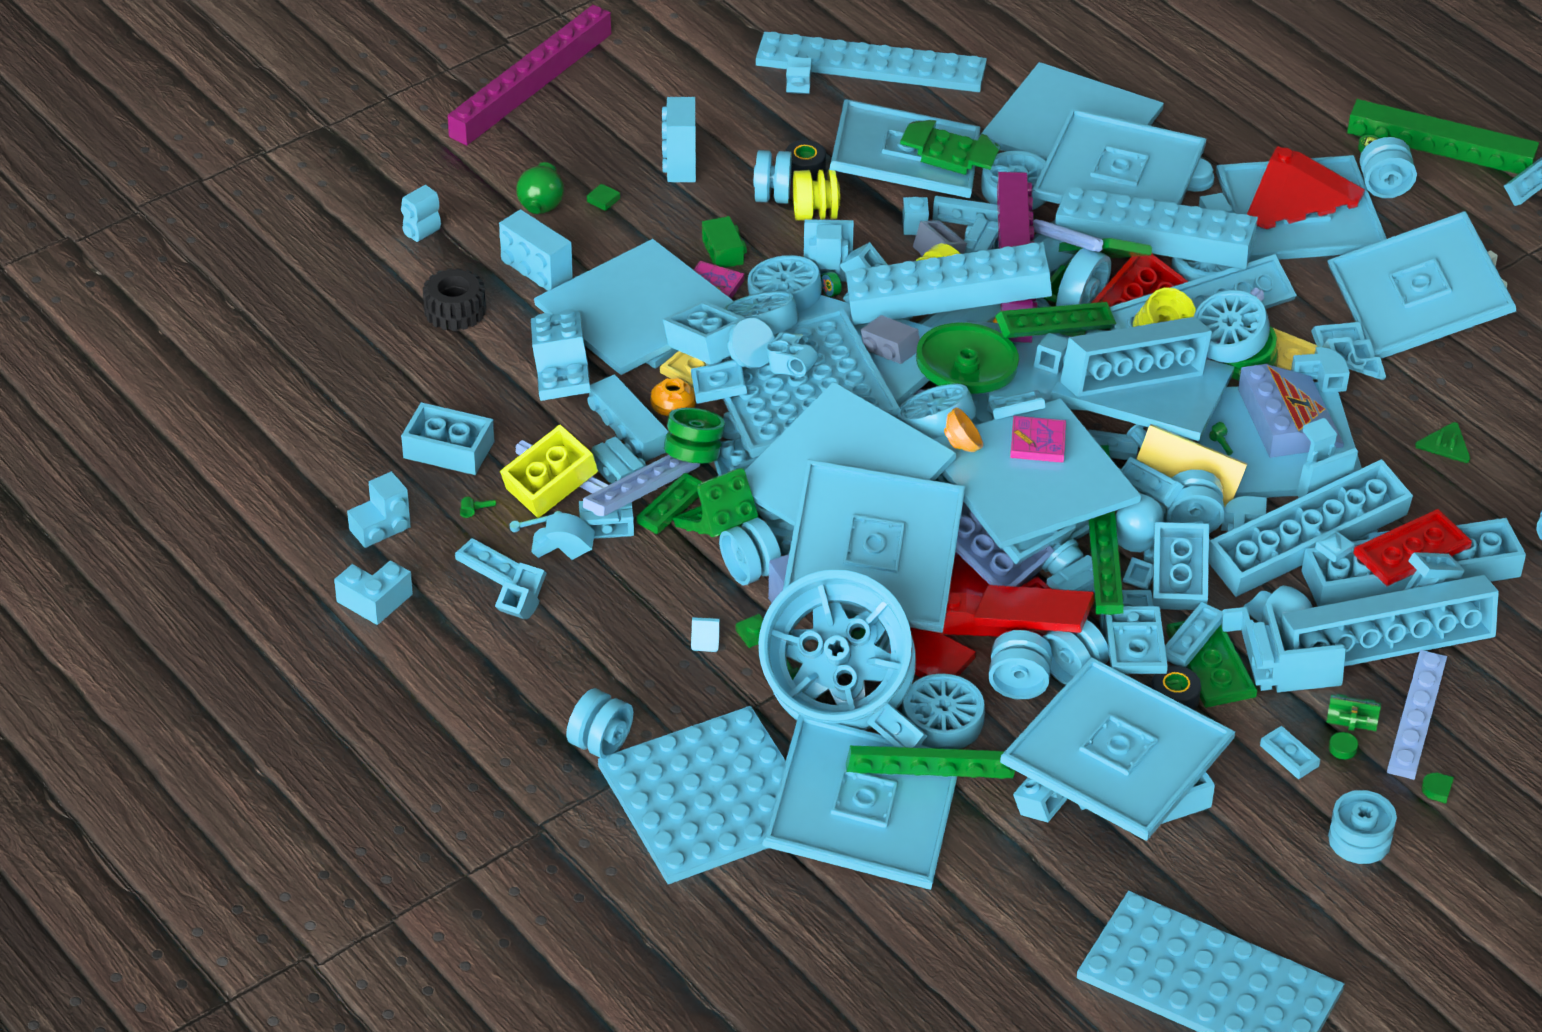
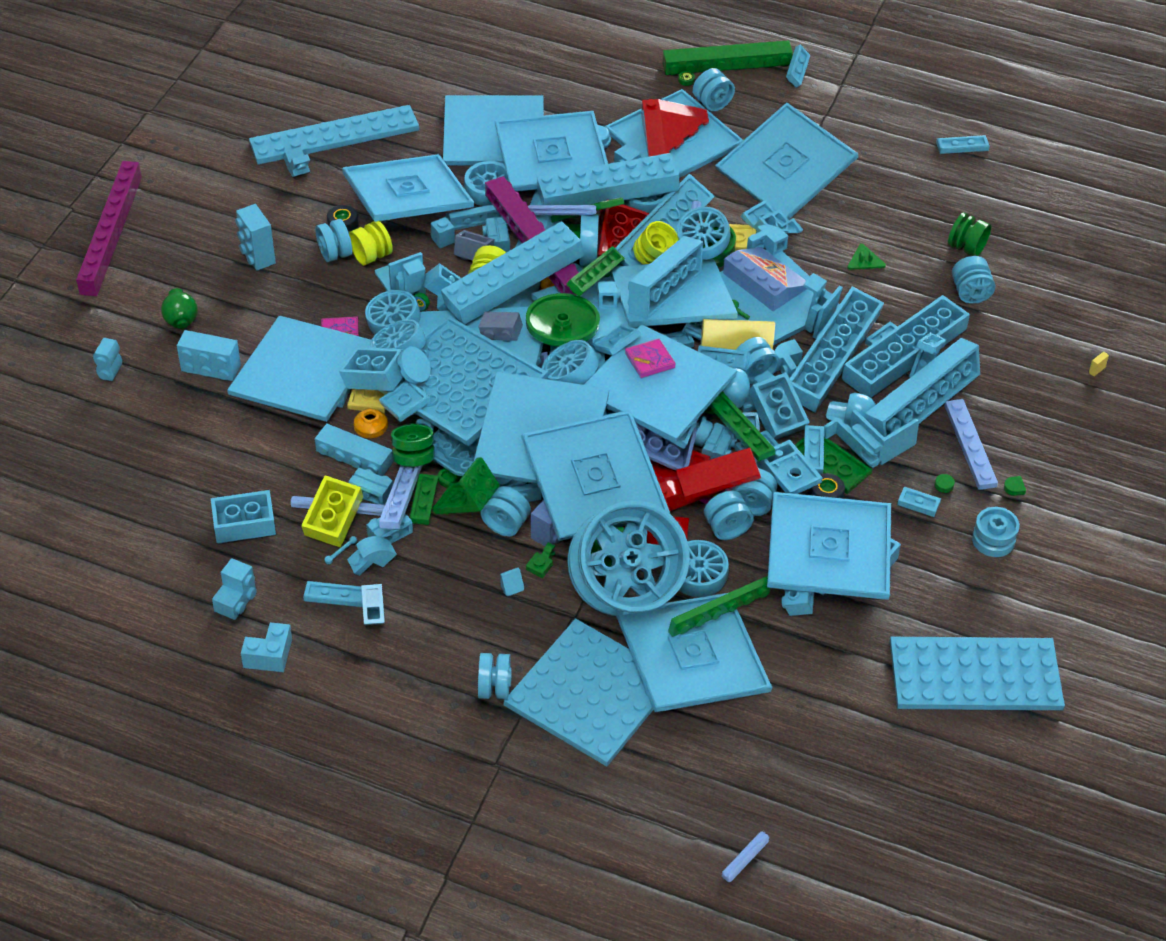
camera: 30 degrees left, 5 degrees up
(454, 299) = (174, 413): black tyre -> none
(468, 506) = (288, 559): green hand -> none
(560, 354) = (280, 424): medium azure bracket -> none
(603, 197) = (221, 298): green tile -> none
(723, 242) = (328, 299): green brick -> none
(790, 354) = (445, 365): medium azure piece -> none
(896, 727) = (690, 595): medium azure plate -> none
(949, 149) = (441, 178): green piece -> none
(962, 431) = (604, 374): light orange piece -> none
(1334, 546) = (861, 355): medium azure tile -> none
(1353, 712) = (937, 459): green hips -> none
(1390, 552) = (903, 335): red tile -> none

